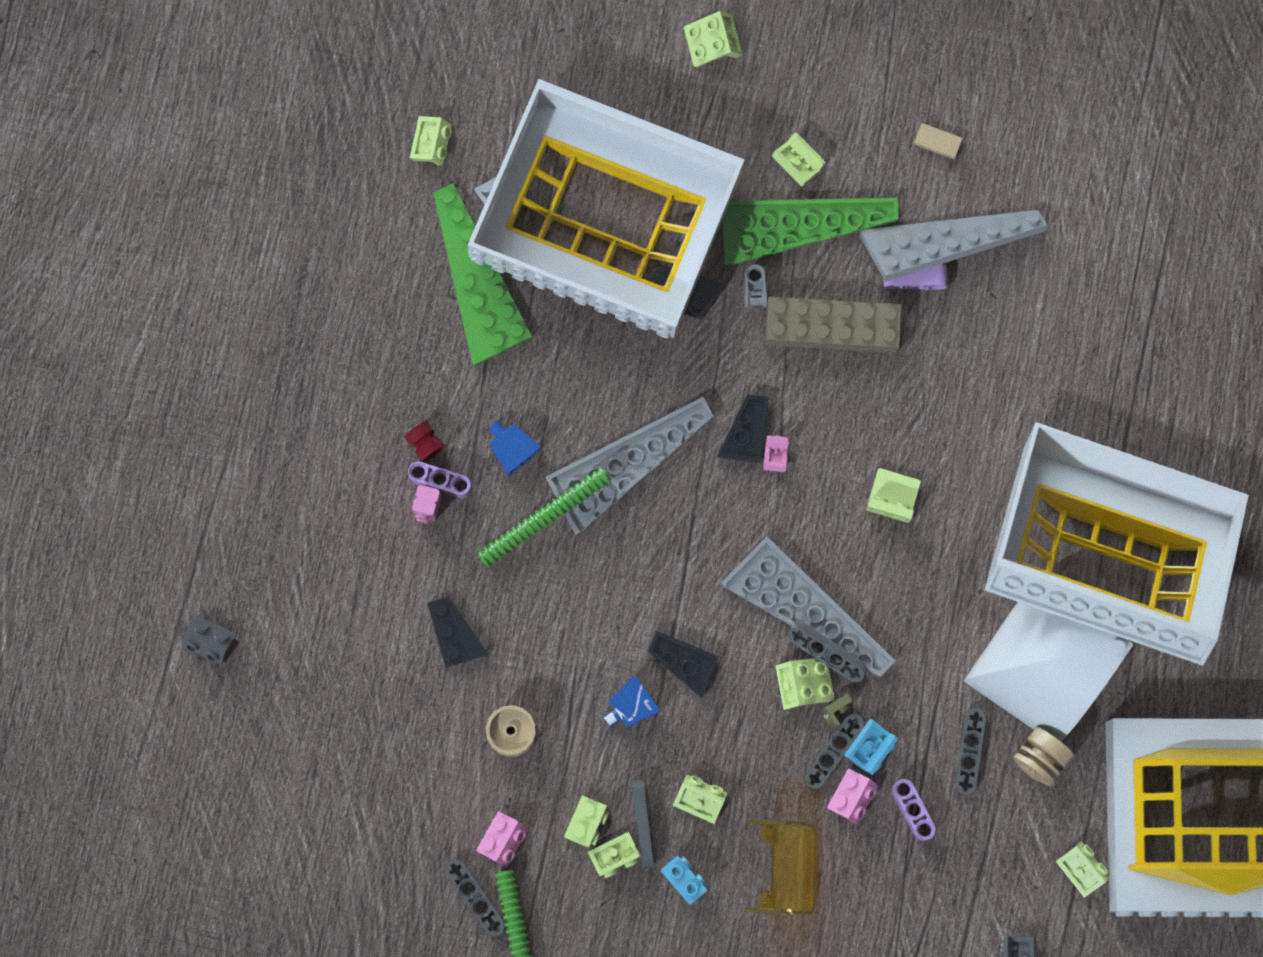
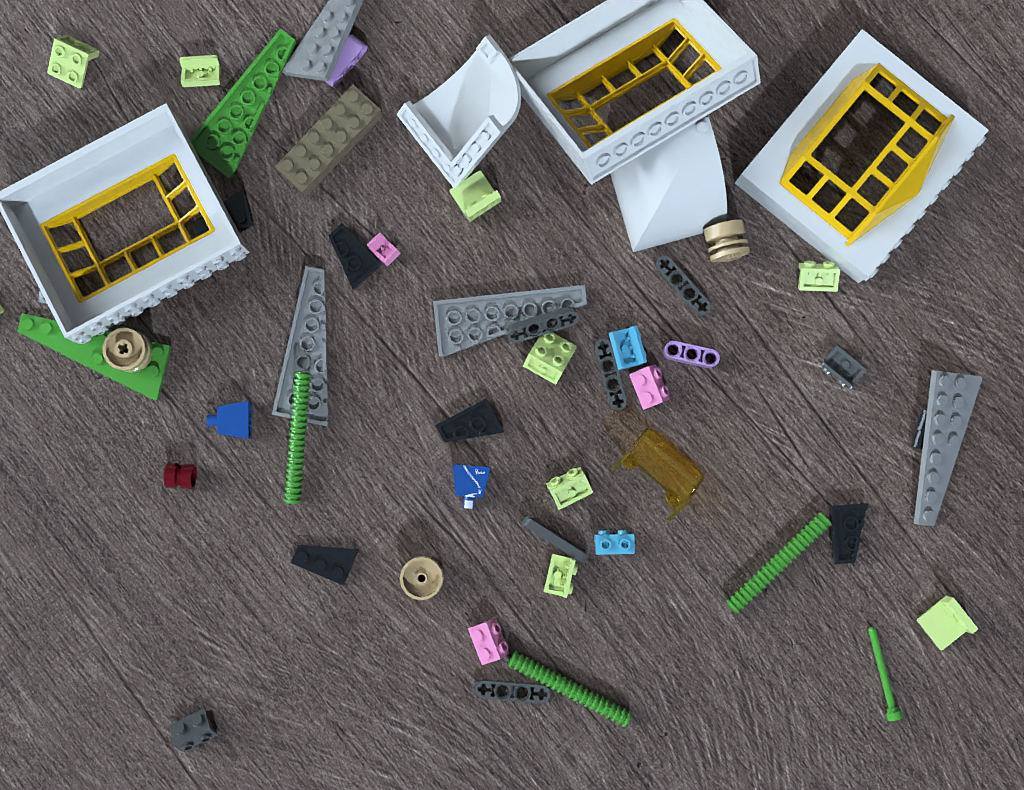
camera: 45 degrees left, 5 degrees up
(426, 504) = (223, 509): bright pink brick -> none
(432, 471) = (205, 487): lavender beam -> none
(495, 291) = (116, 347): none -> tan wheel
(586, 821) = (522, 575): yellowish green bracket -> none
(755, 291) = (263, 173): light grey piece -> none
(838, 706) = (583, 347): olive bracket -> none
(960, 425) = (466, 112): none -> white panel

